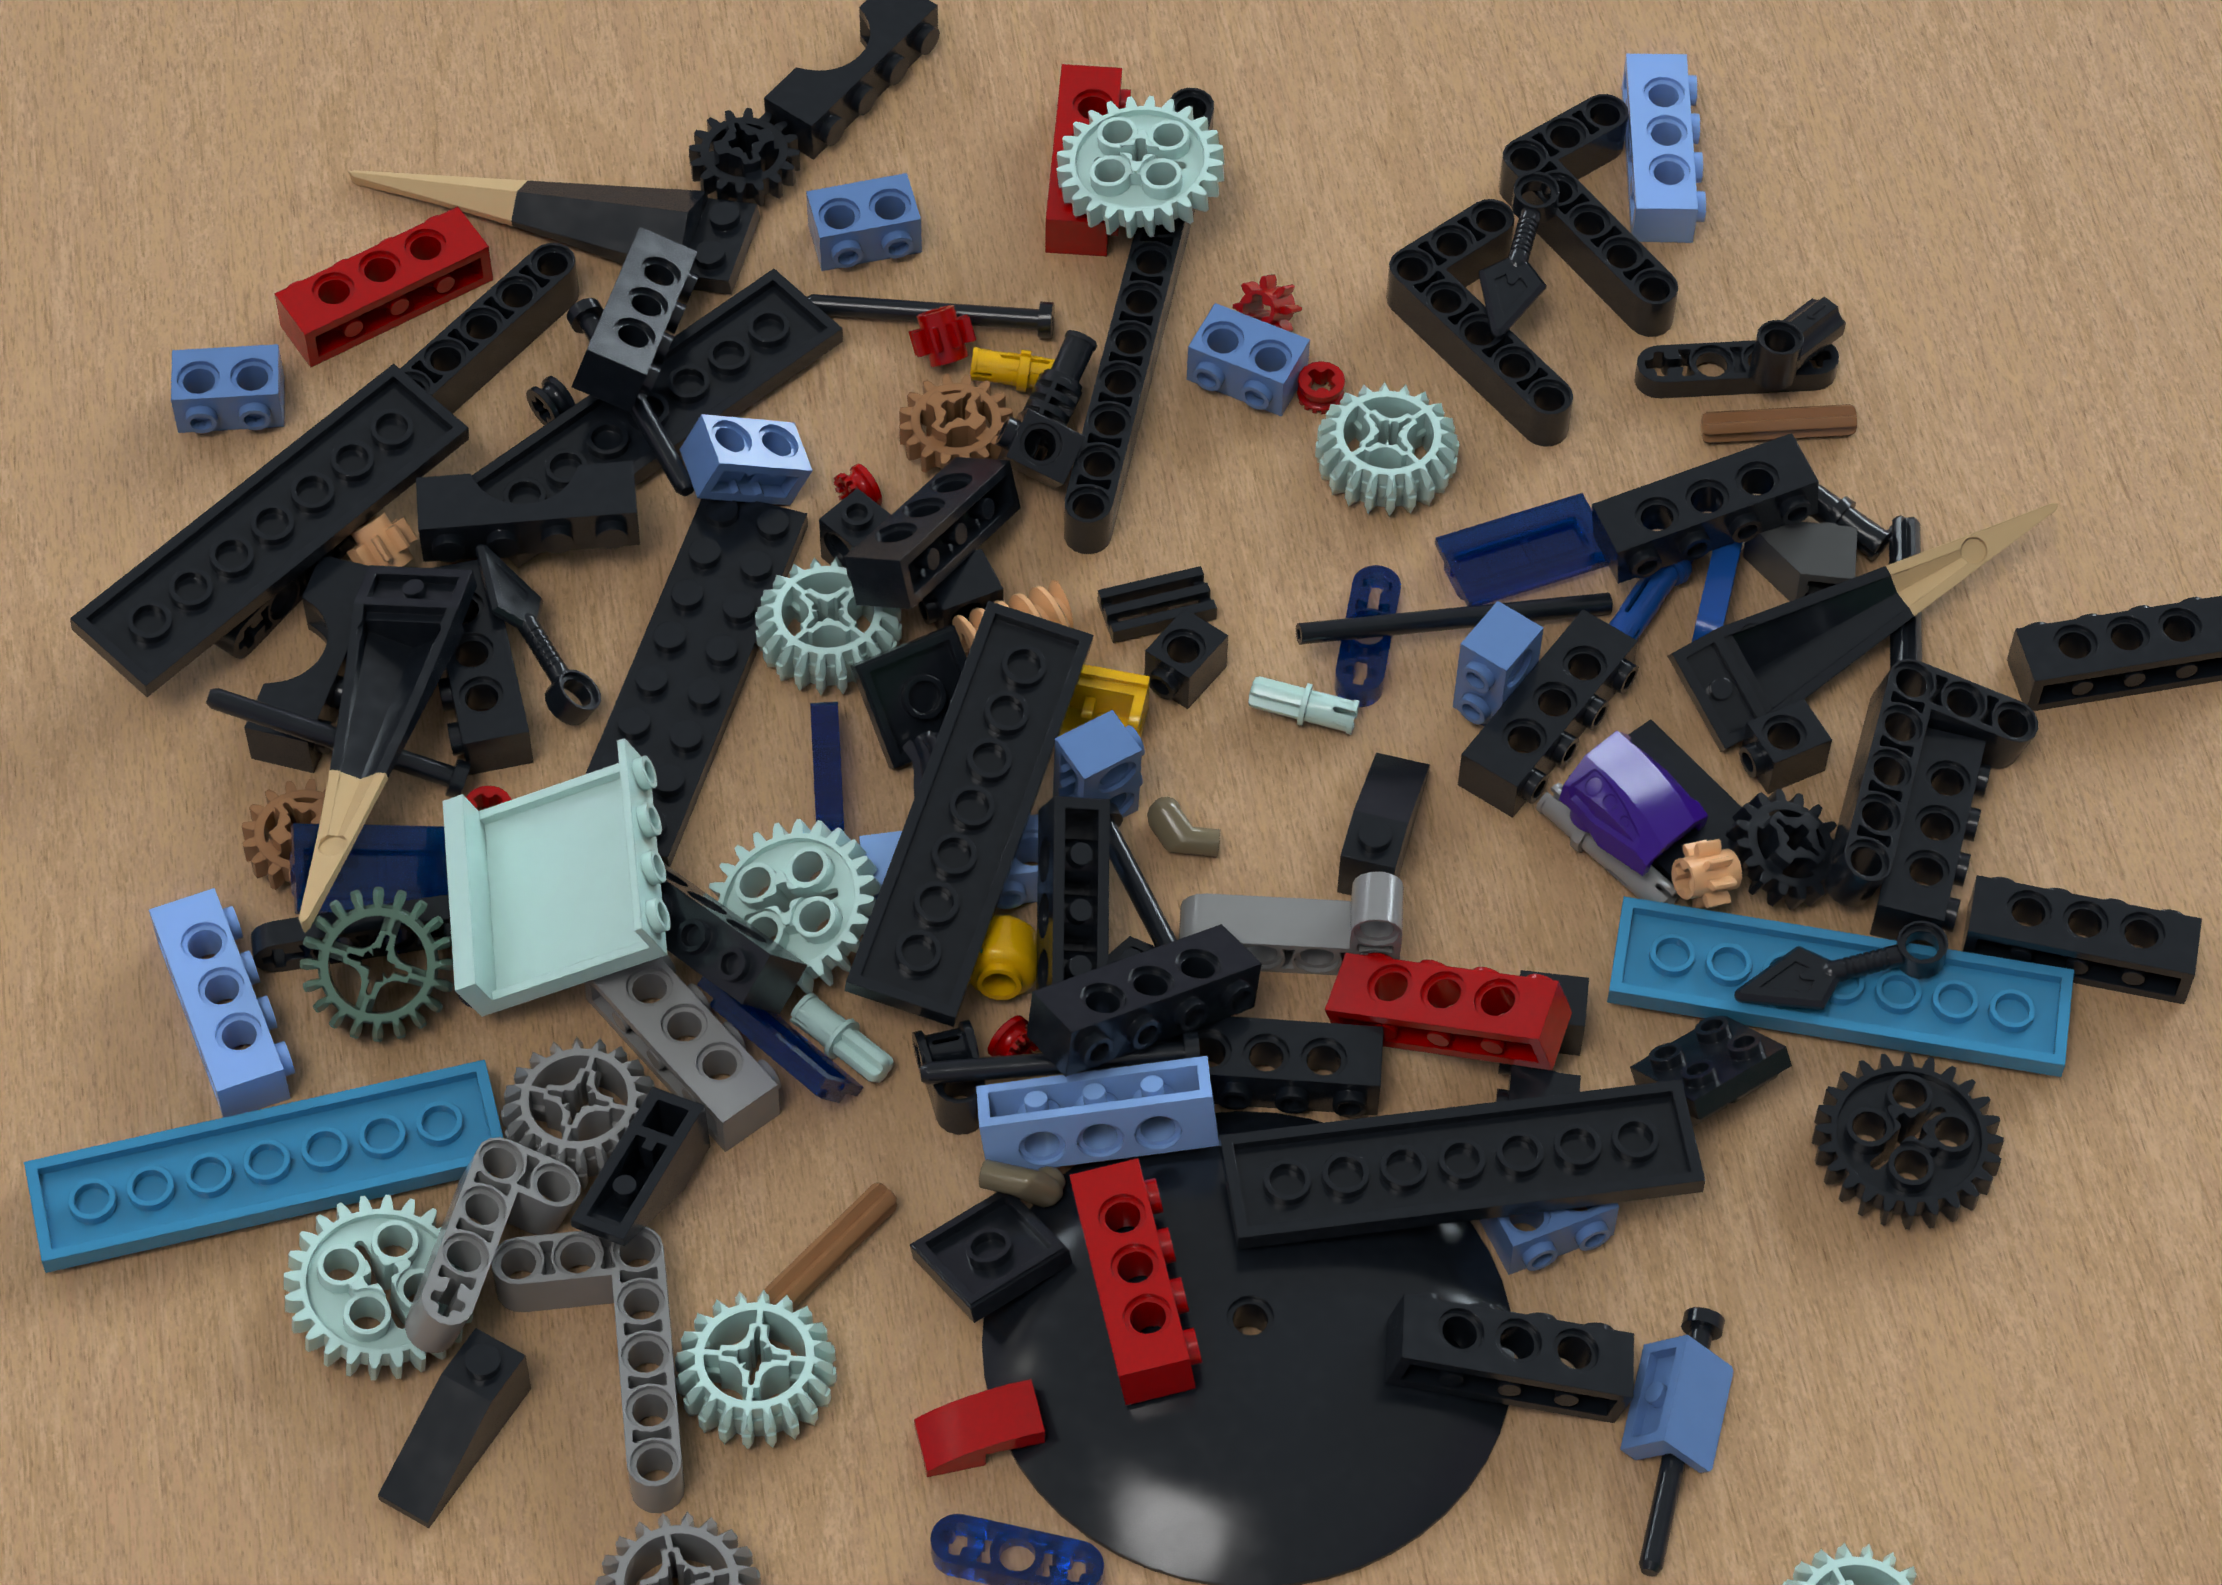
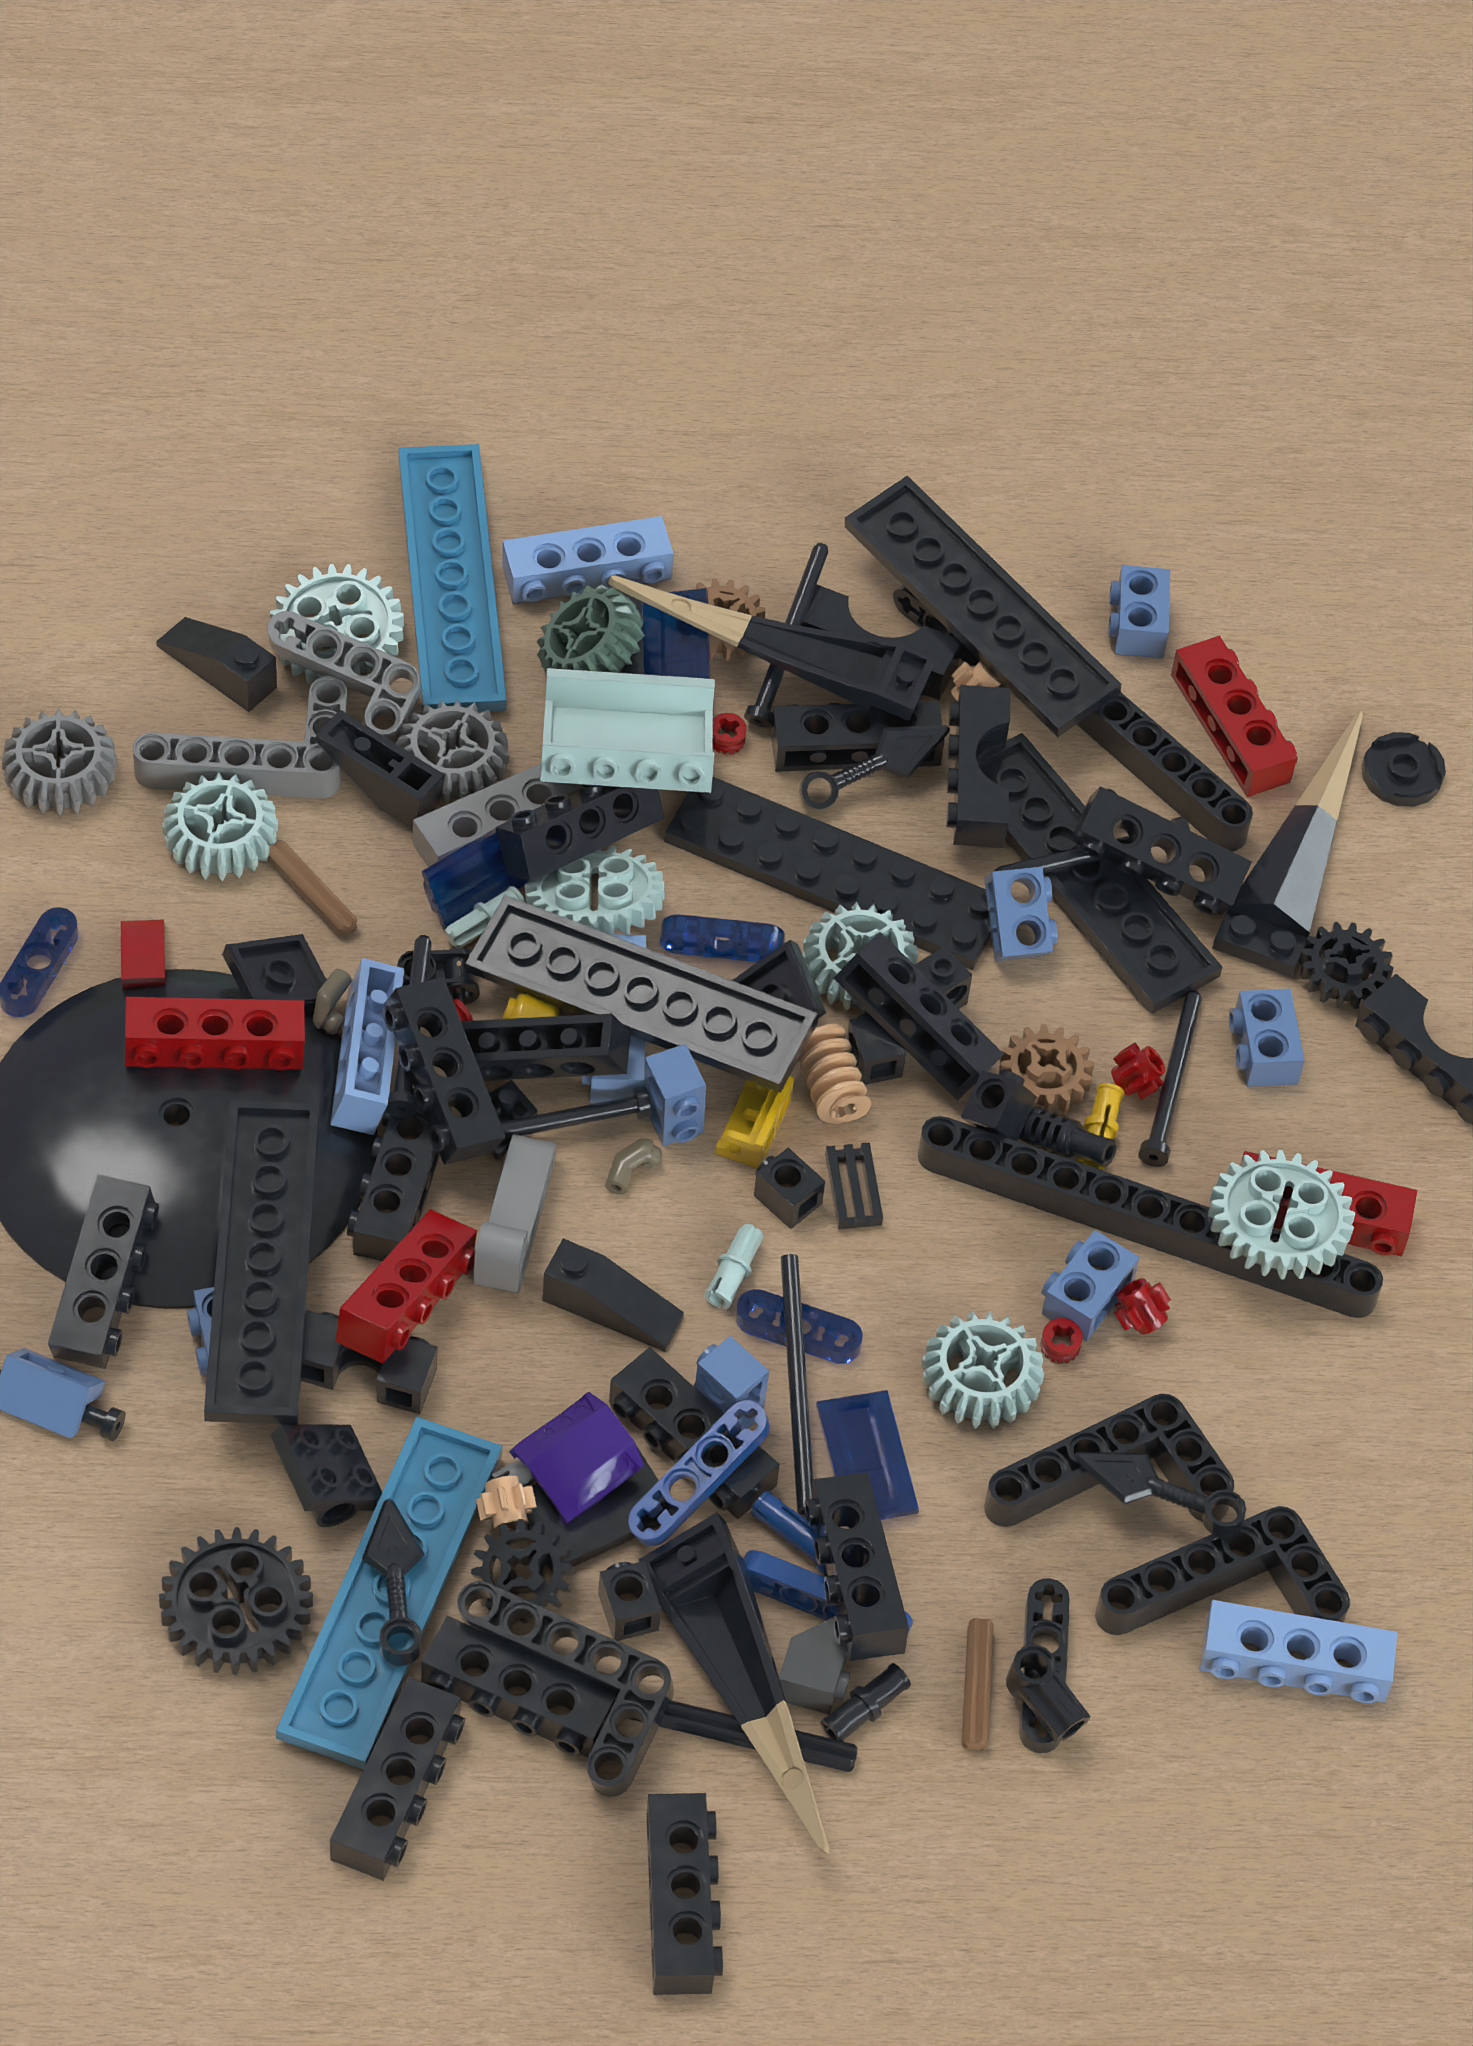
camera: 95 degrees right, 0 degrees up
(430, 130) = (1403, 769): none -> black tile
(860, 479) = (991, 996): red bush -> none
(1618, 684) = (692, 1467): none -> blue beam

